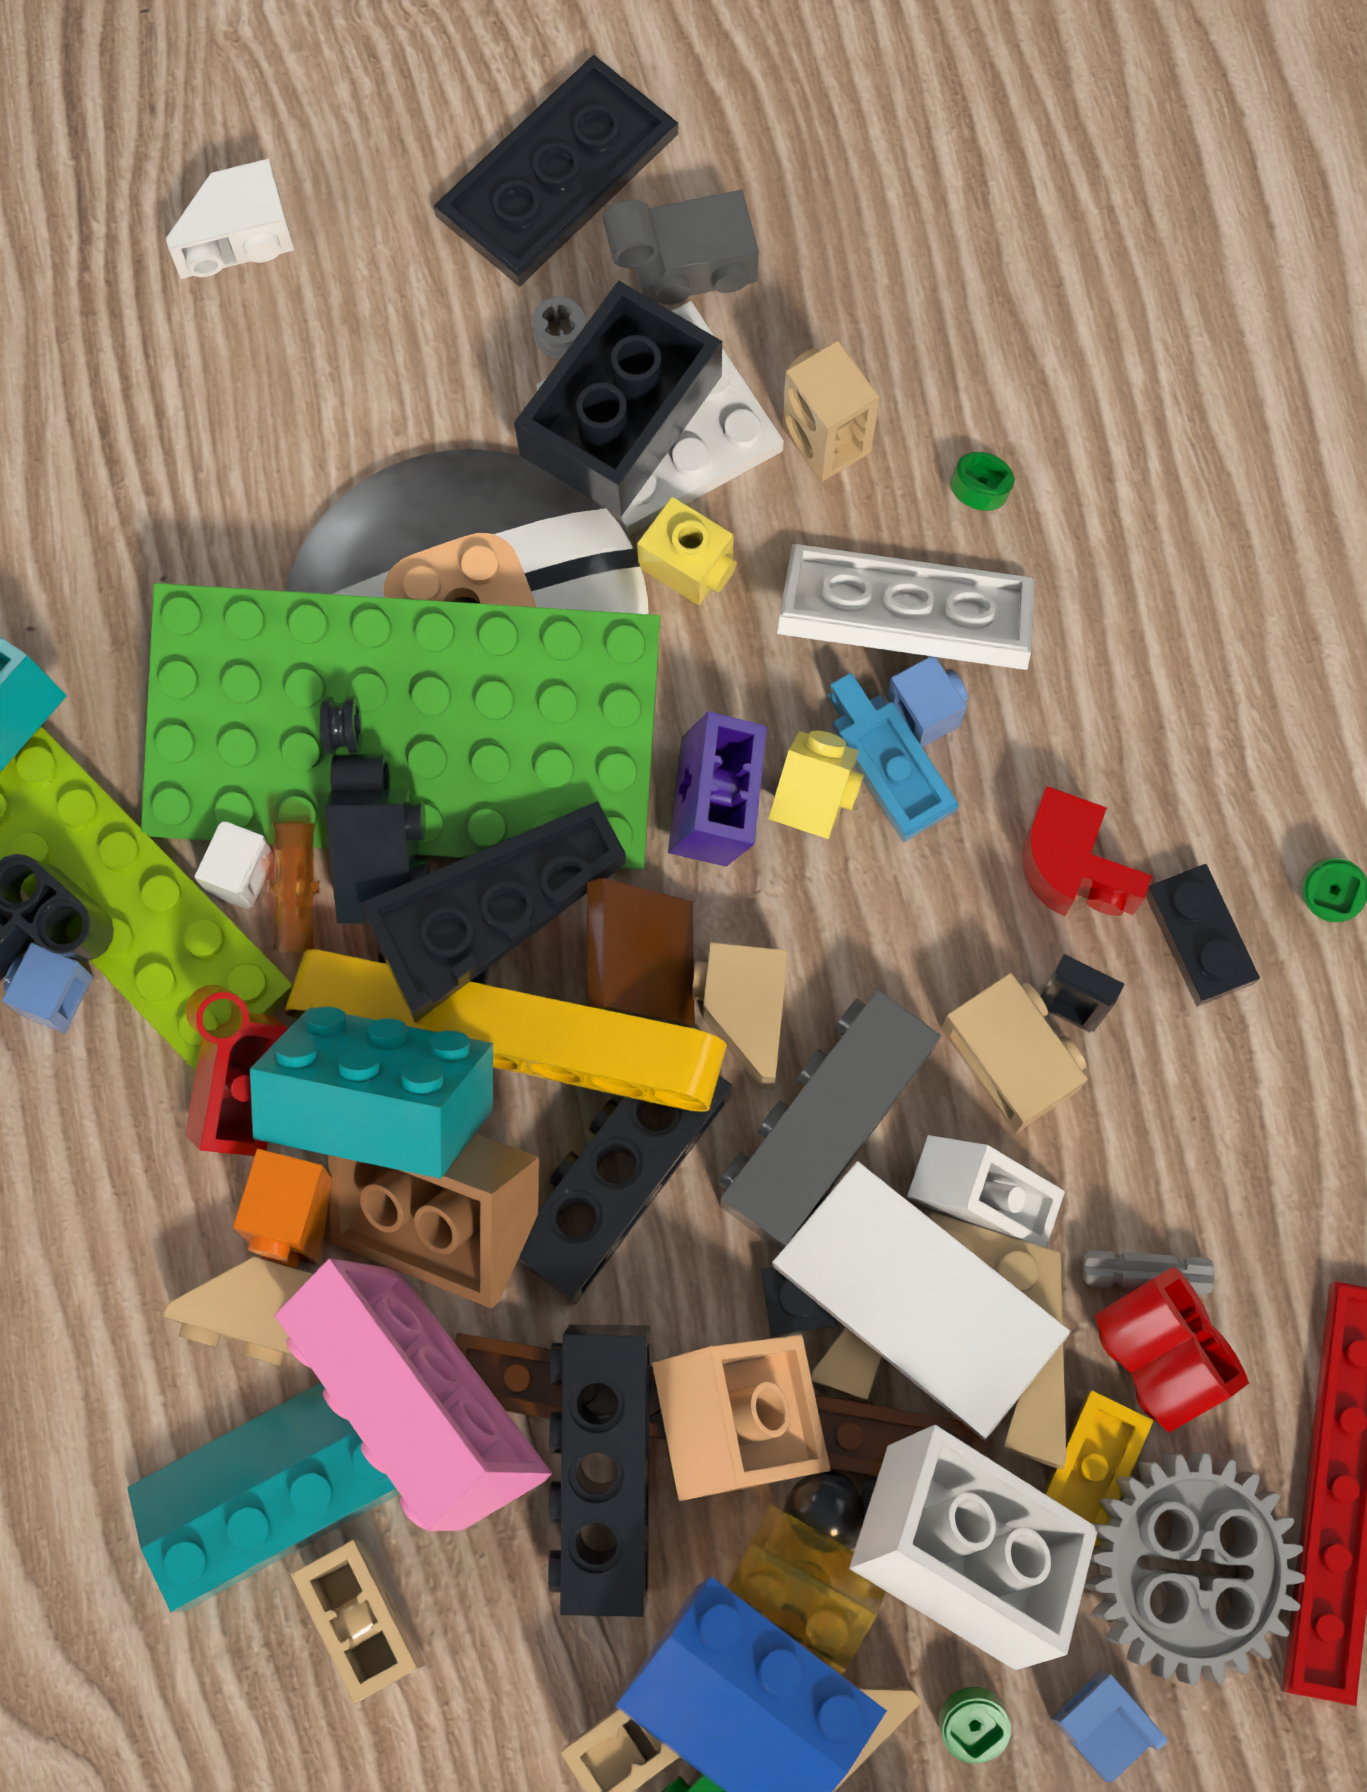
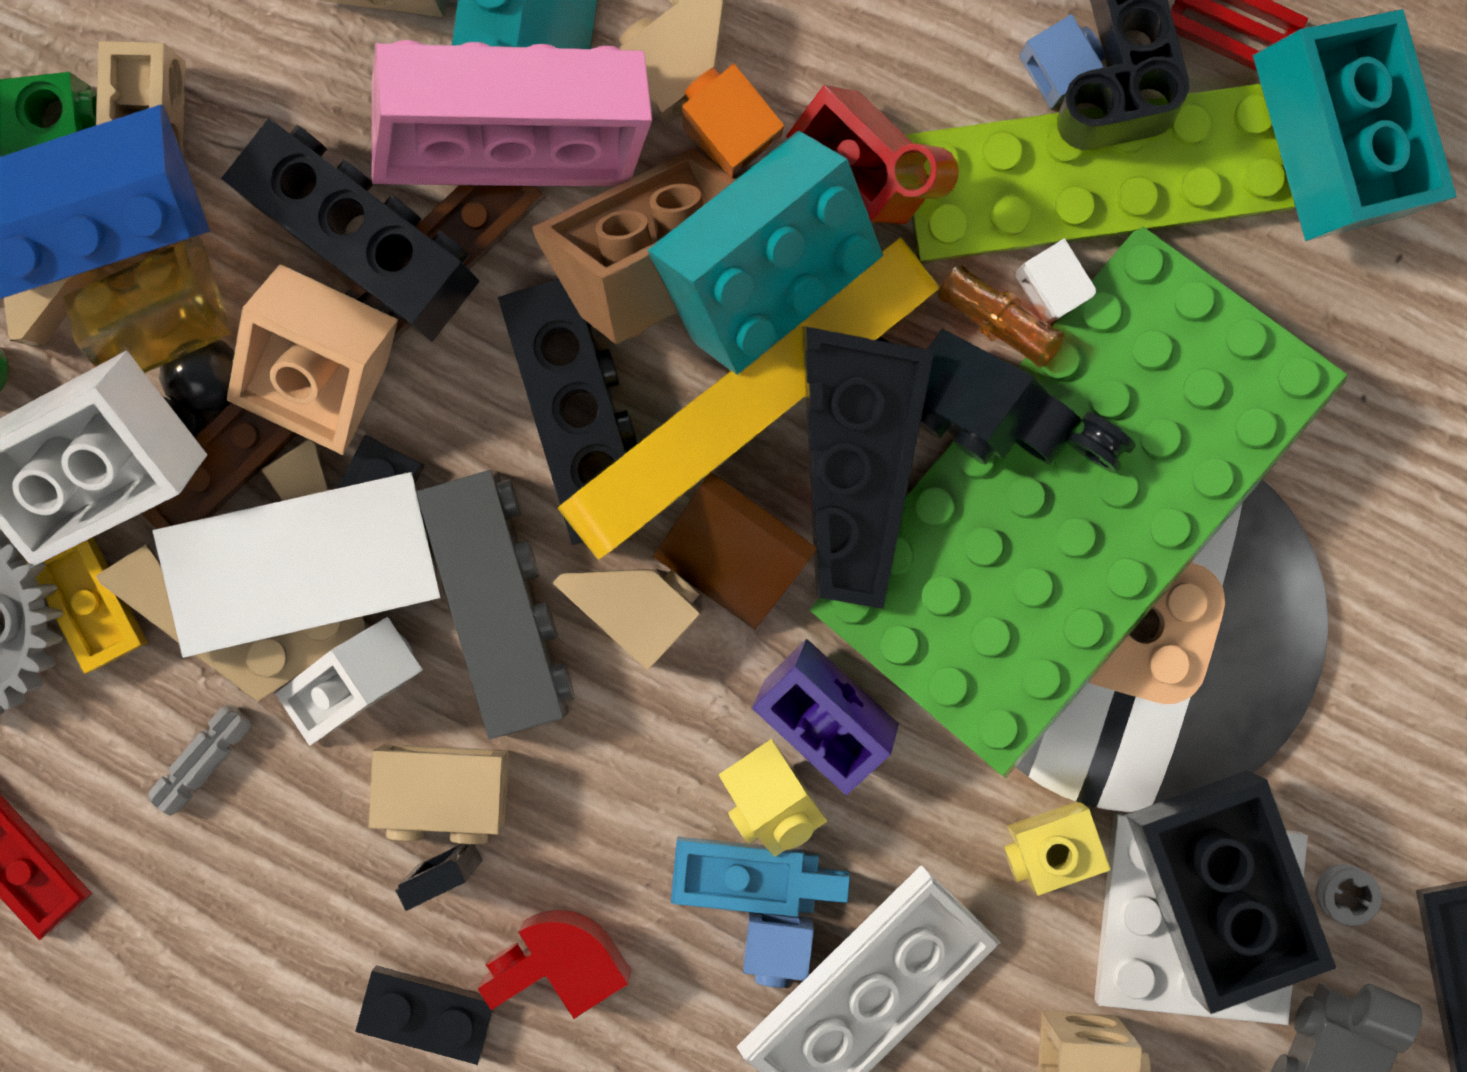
camera: 125 degrees right, 15 degrees up
(1170, 1350) = (122, 728): red brick -> none

